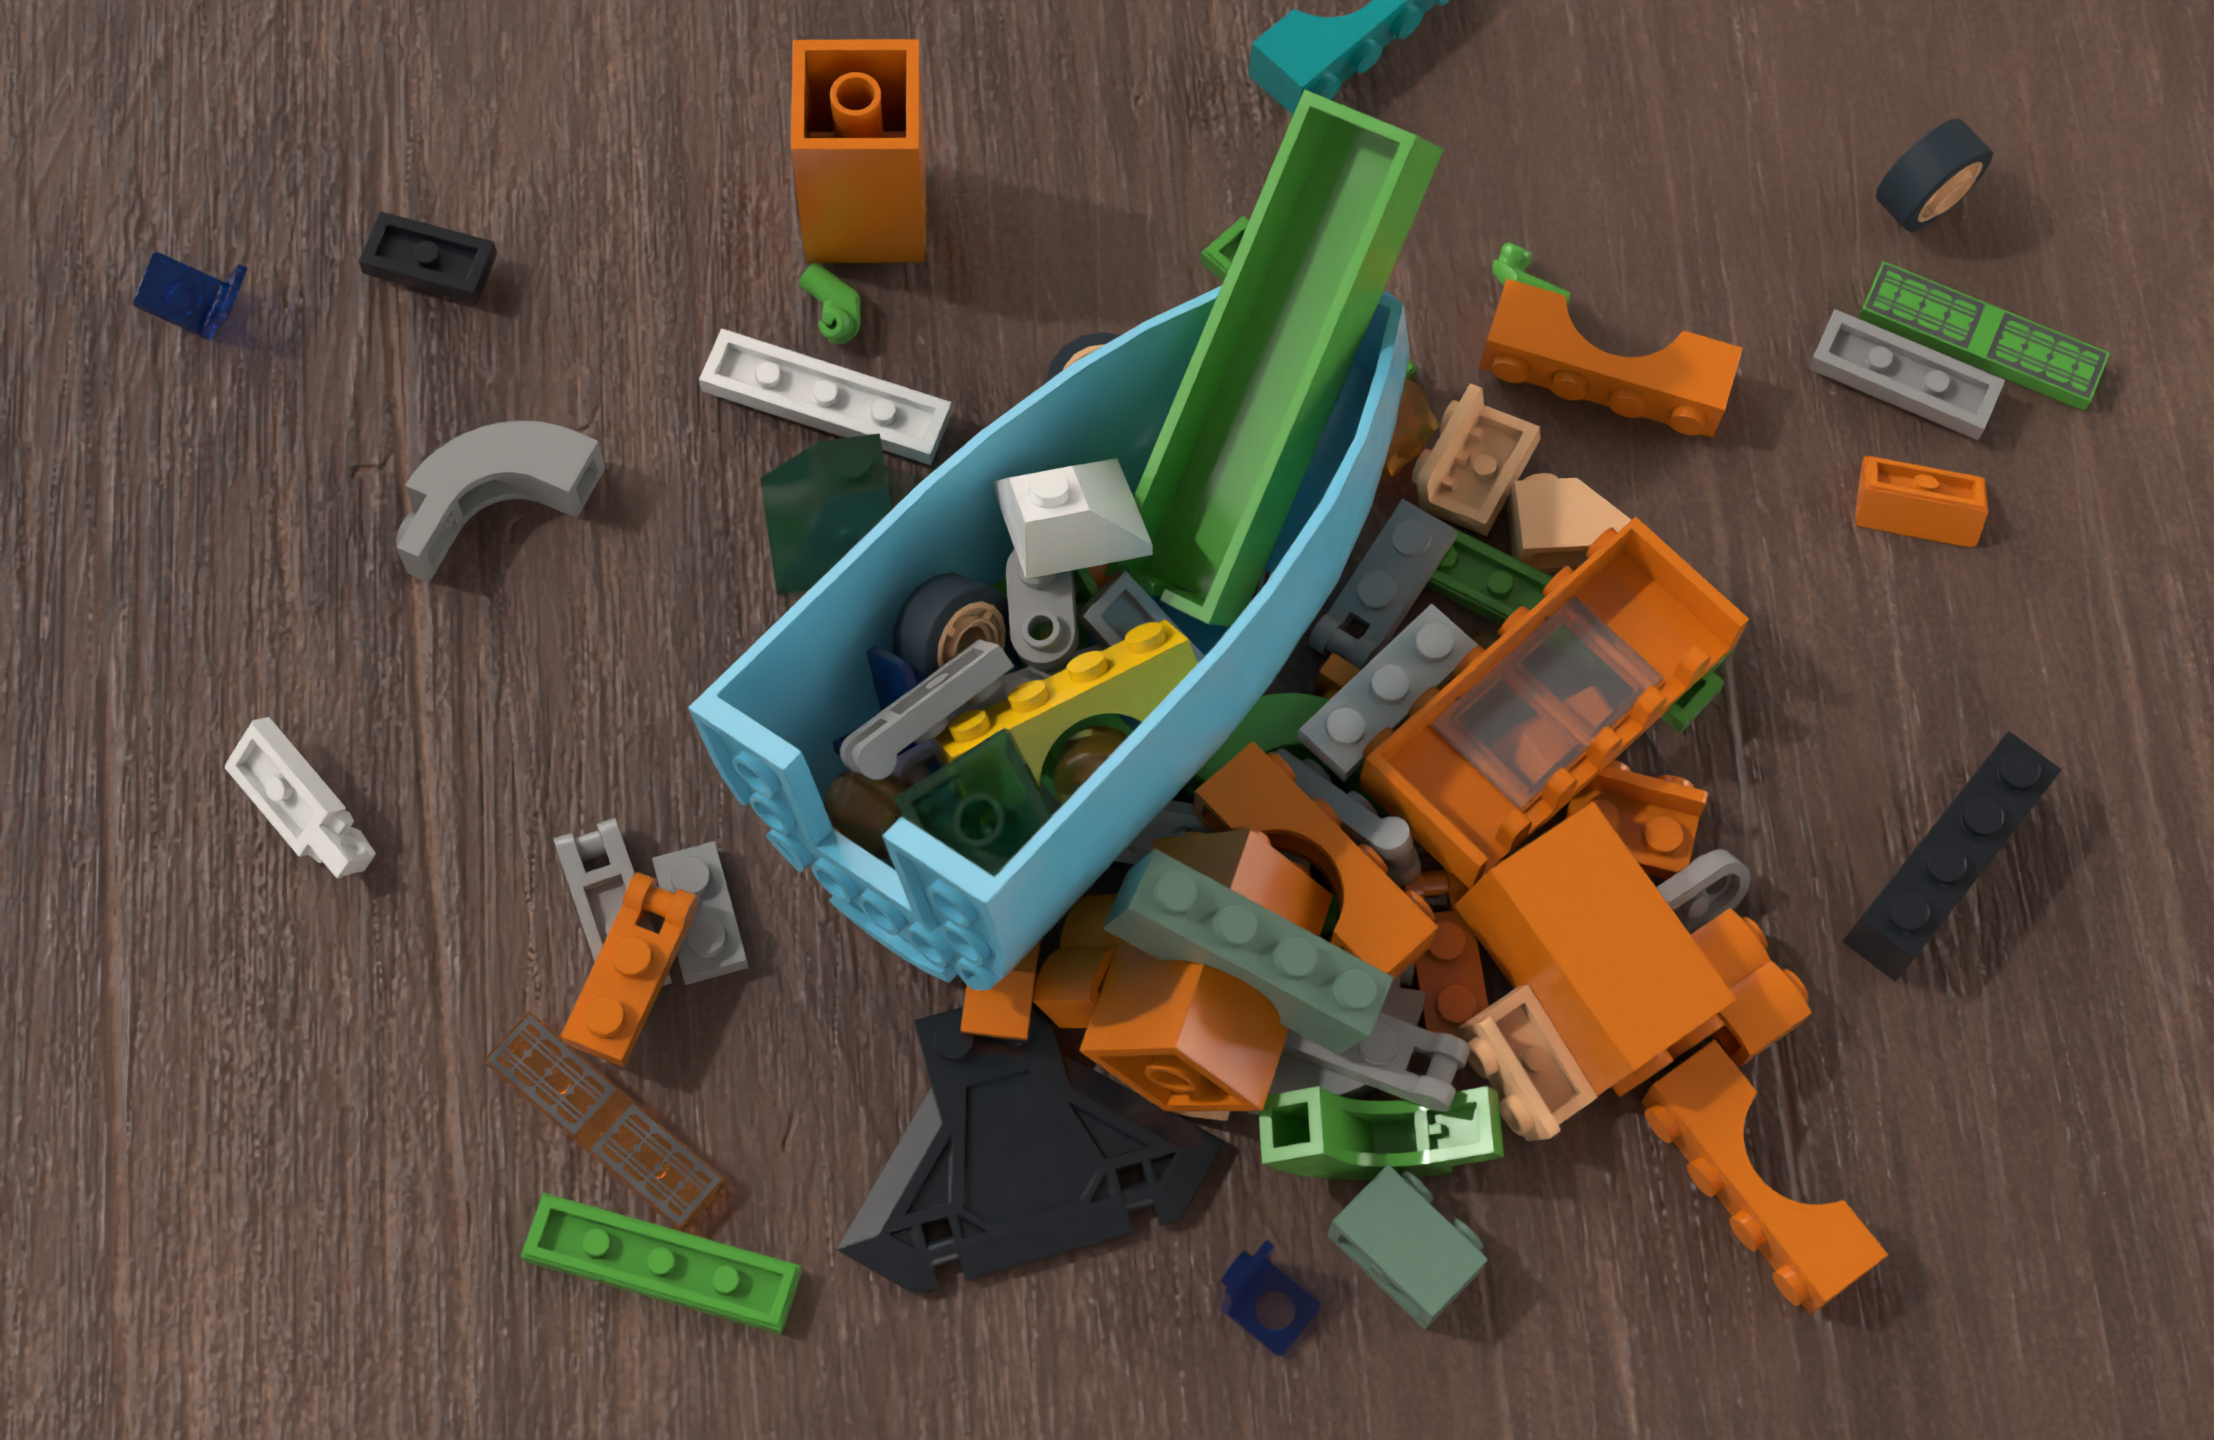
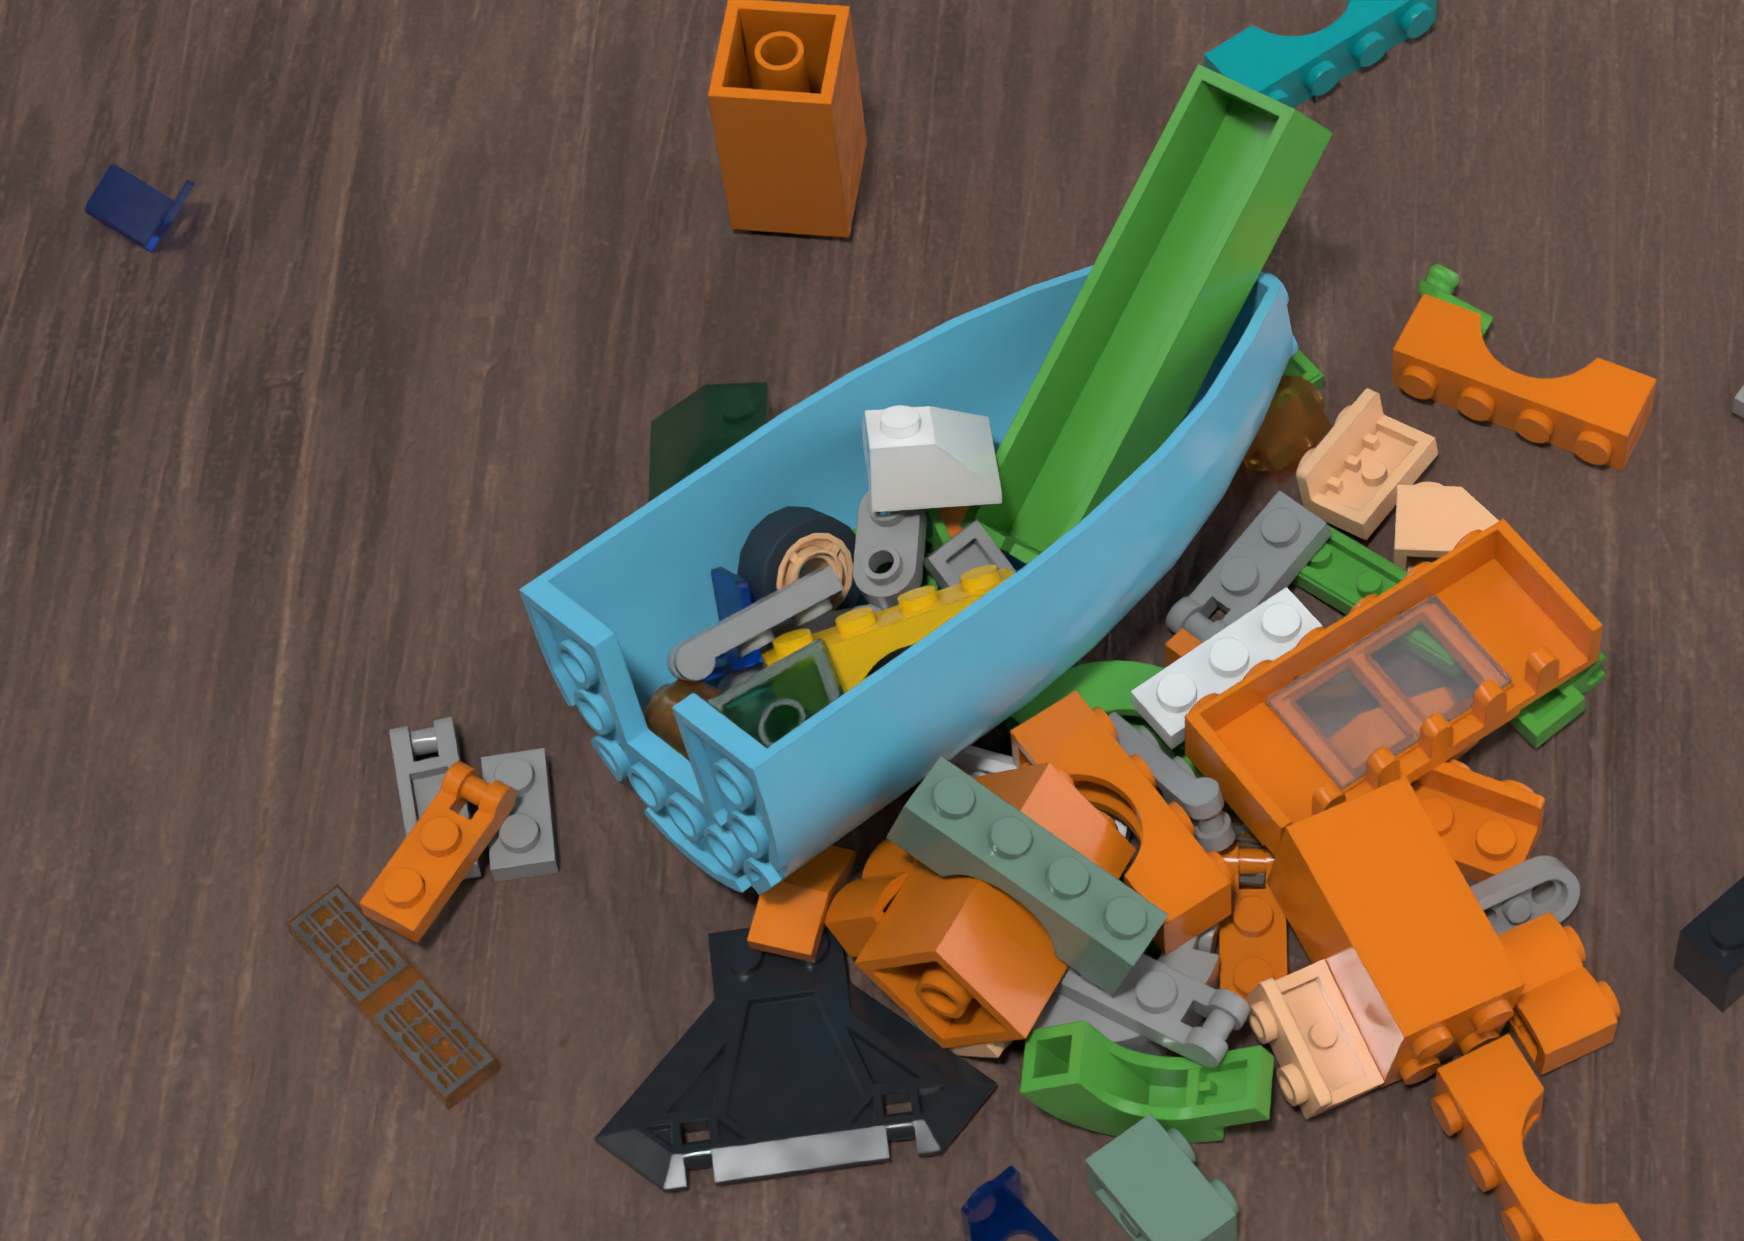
camera: 20 degrees right, 10 degrees down
(297, 800) = (154, 669): white hinge -> none
(428, 257) = (369, 193): black plate -> none
(492, 466) = (388, 387): light grey arch -> none
(662, 1263) = (424, 1133): bright green tile -> none
(825, 395) = (719, 345): white plate -> none
(840, 303) = (757, 265): bright green arm -> none

